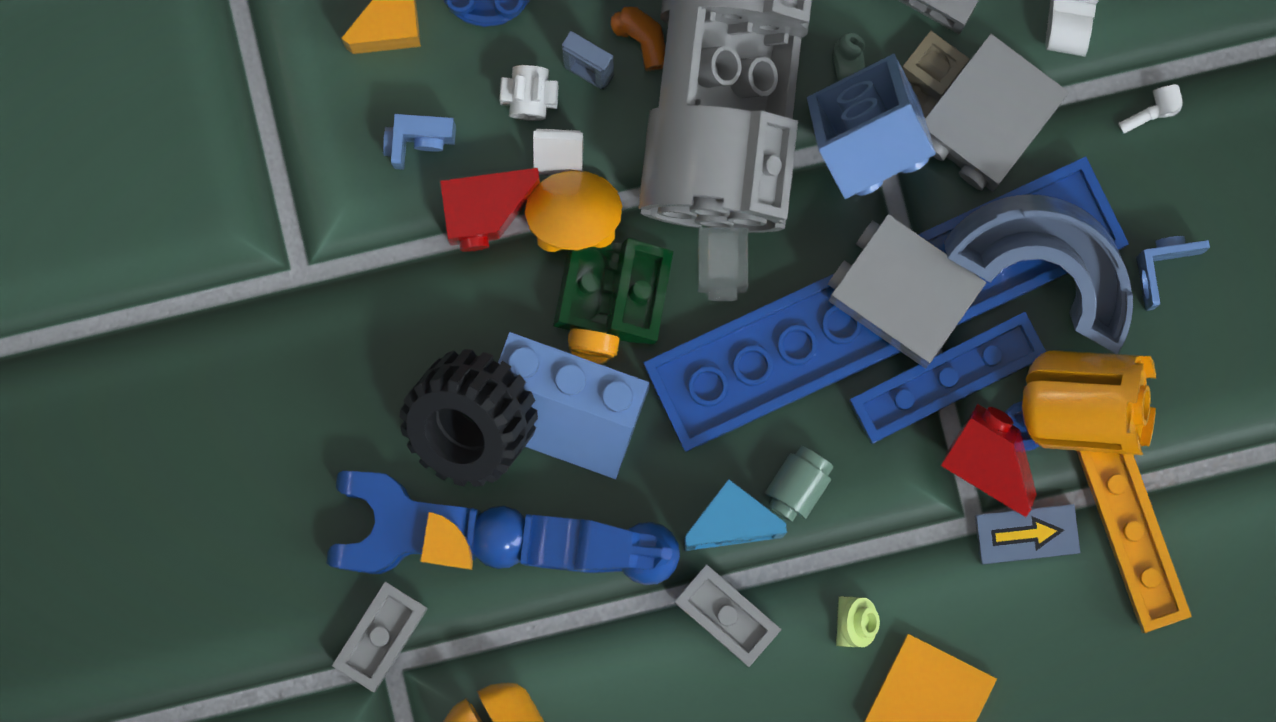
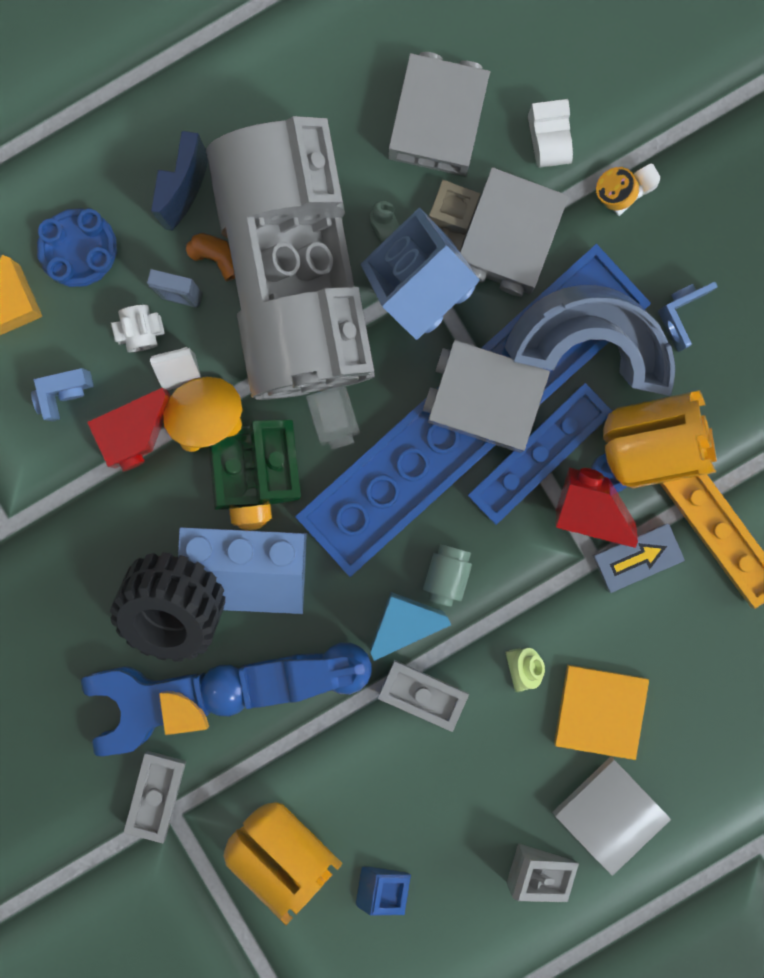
camera: 20 degrees left, 5 degrees up
(1129, 101) = (617, 188): none -> light orange tile

